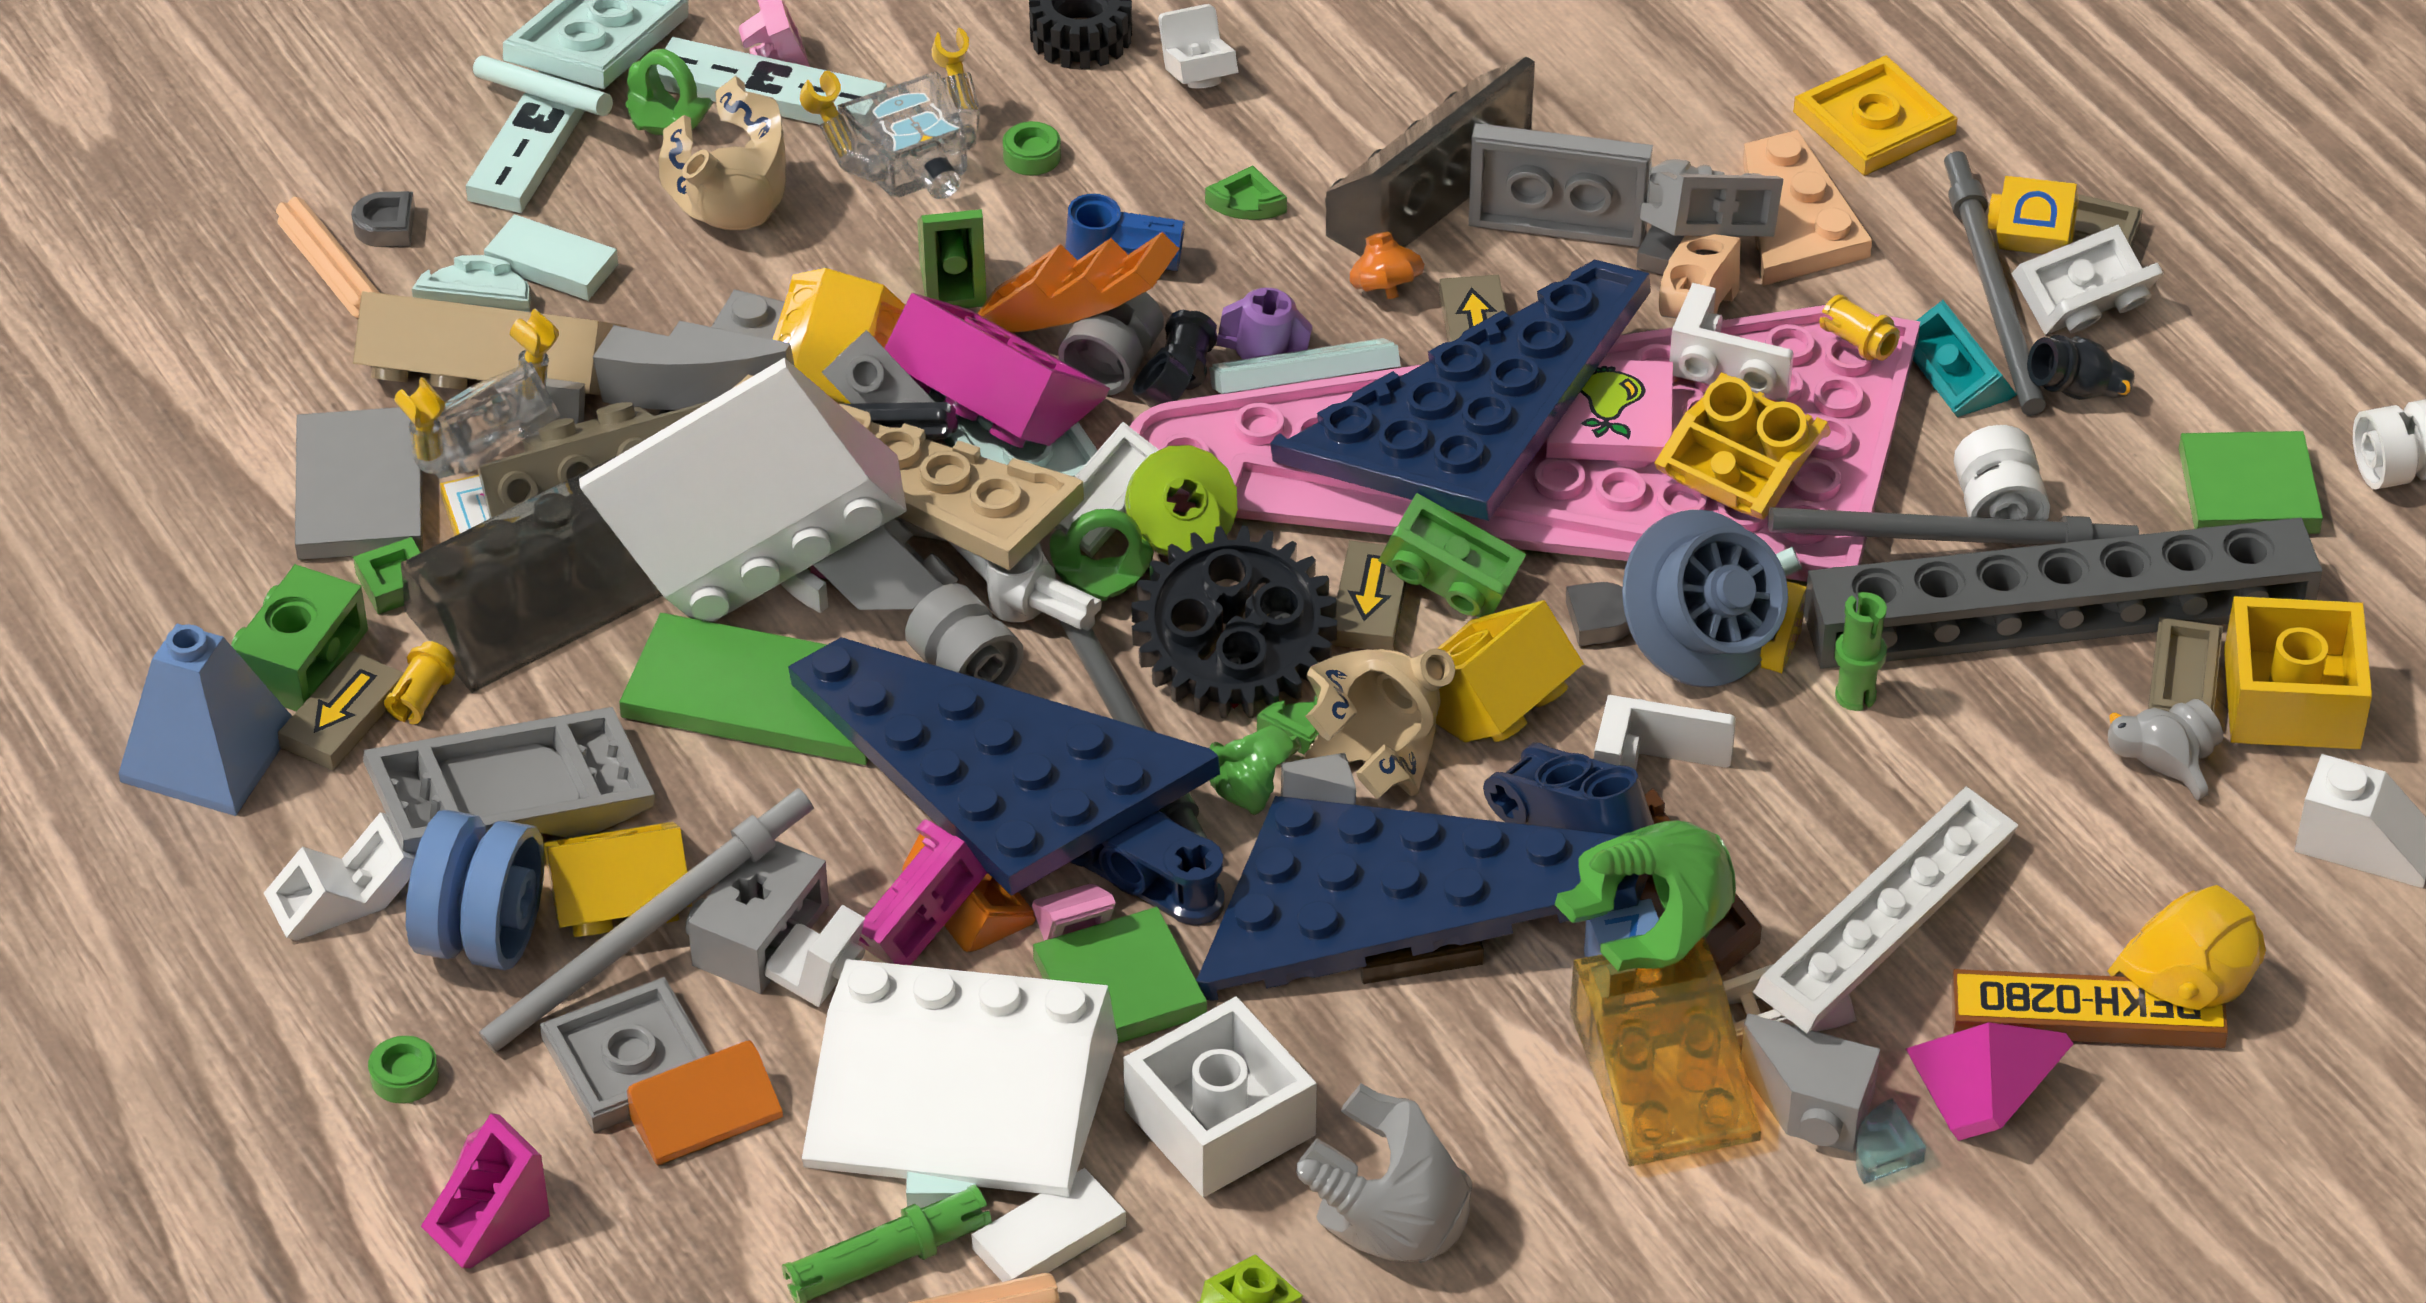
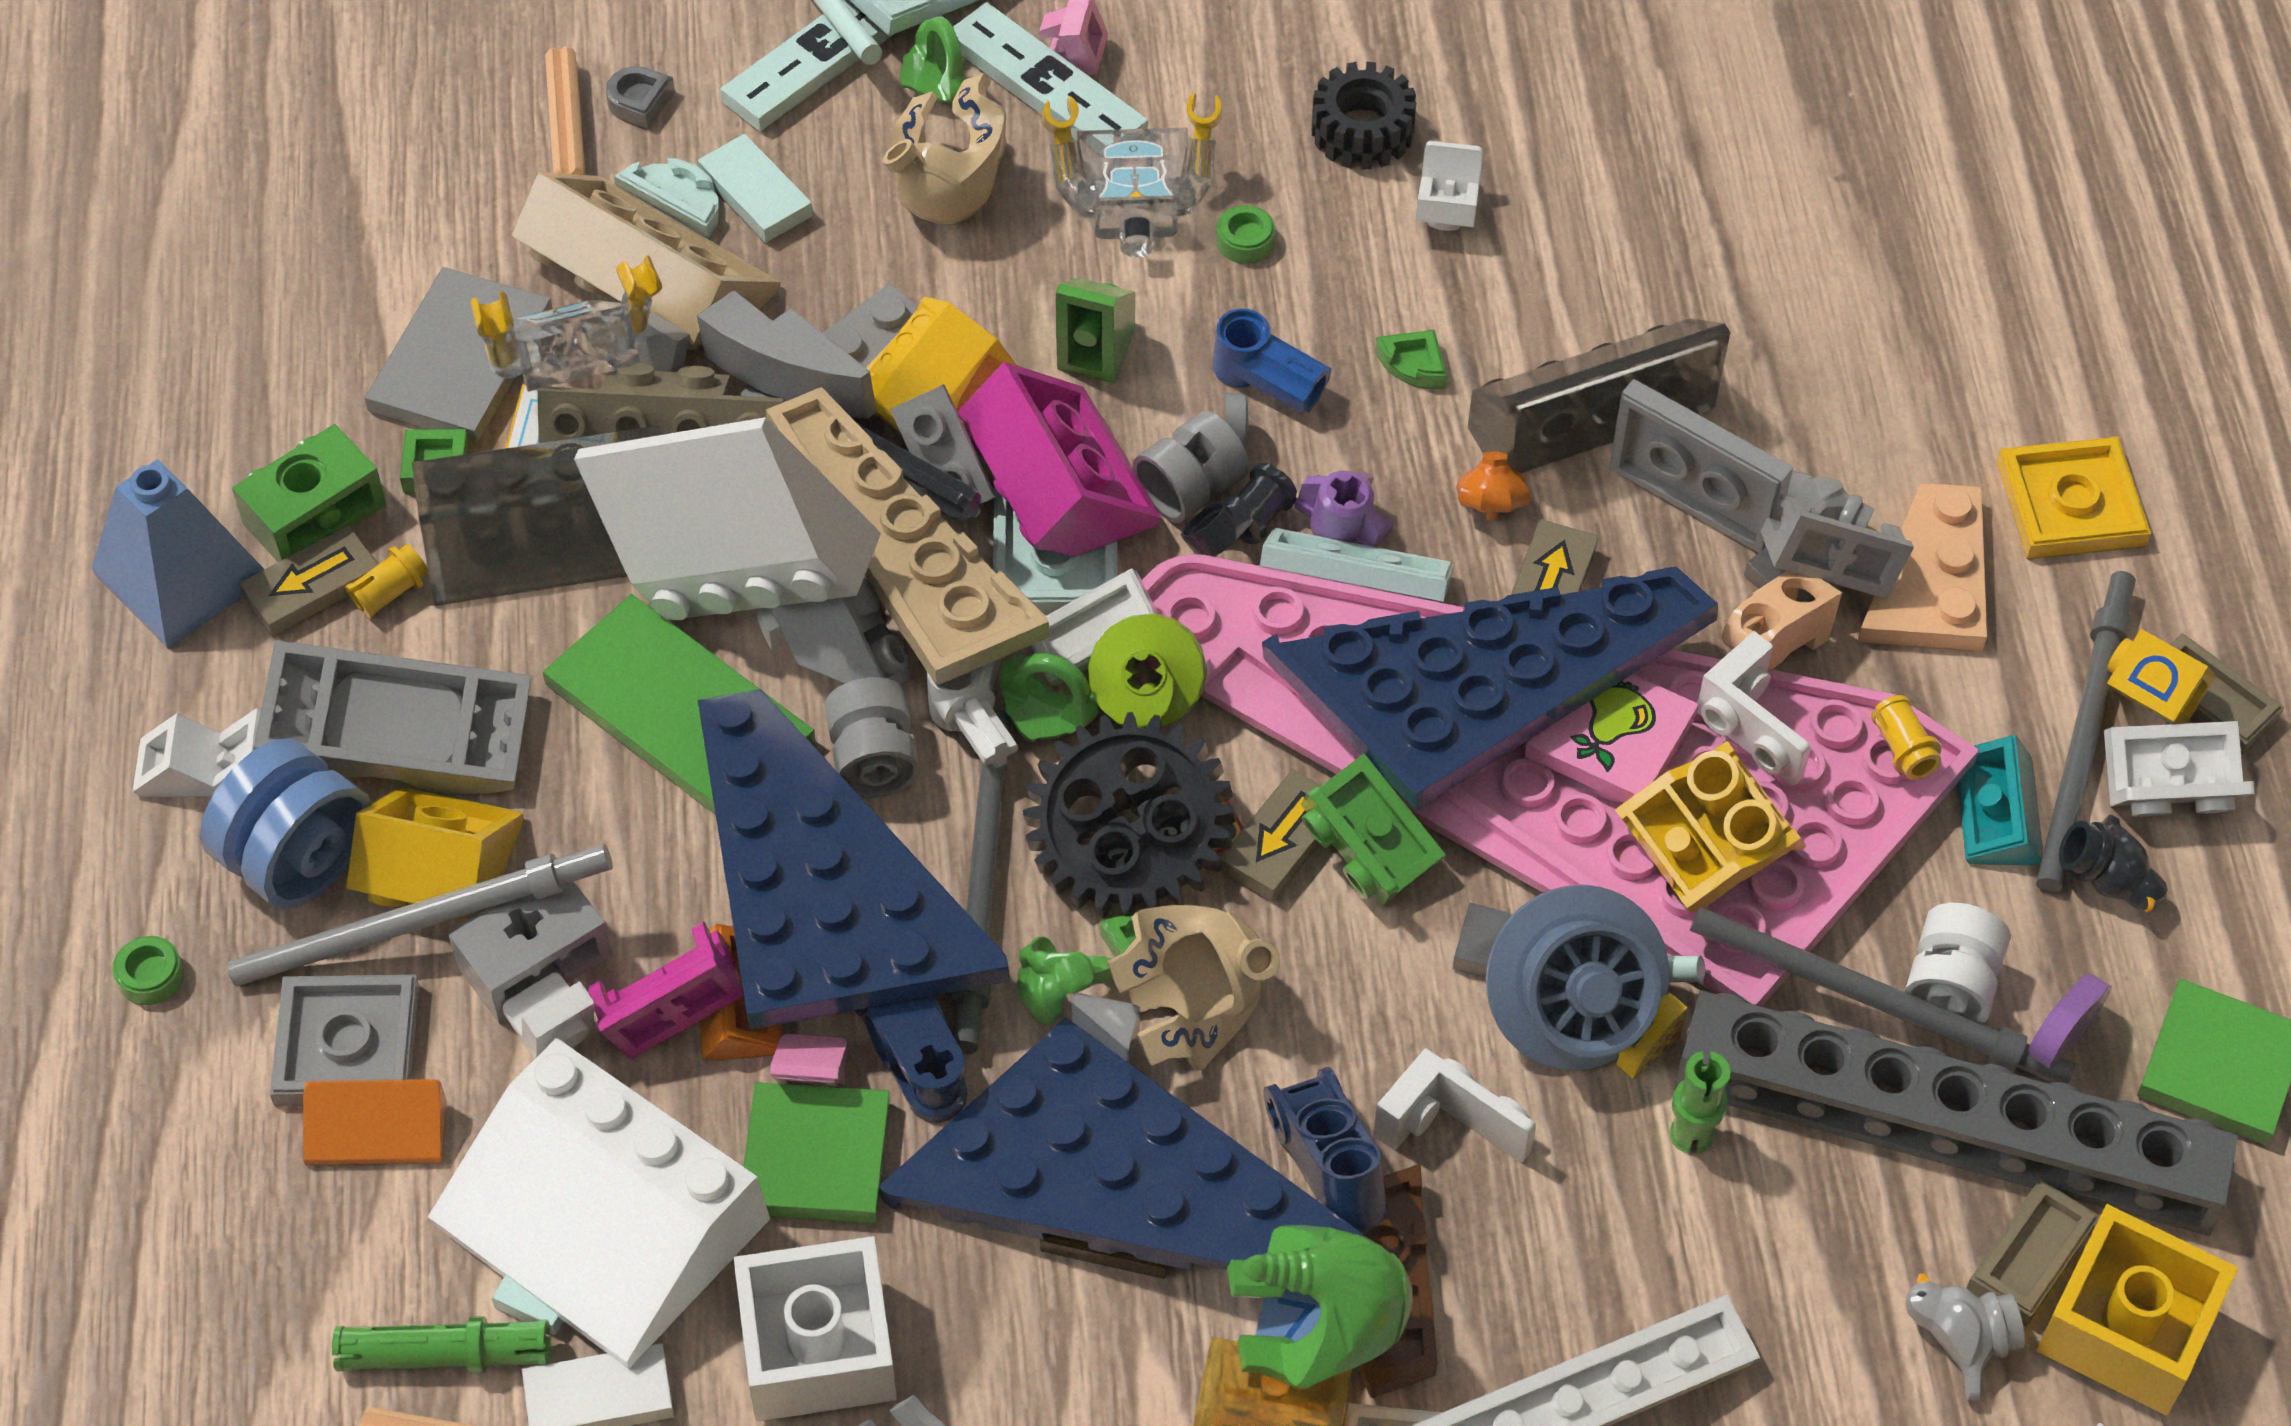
camera: 25 degrees right, 10 degrees up
(491, 1194) = (130, 1140): dark pink slope -> none
(1066, 290) = (1171, 409): orange slope -> none
(1504, 670) = (1344, 972): yellow slope -> none
(2116, 489) = (2069, 1020): none -> medium lavender tile

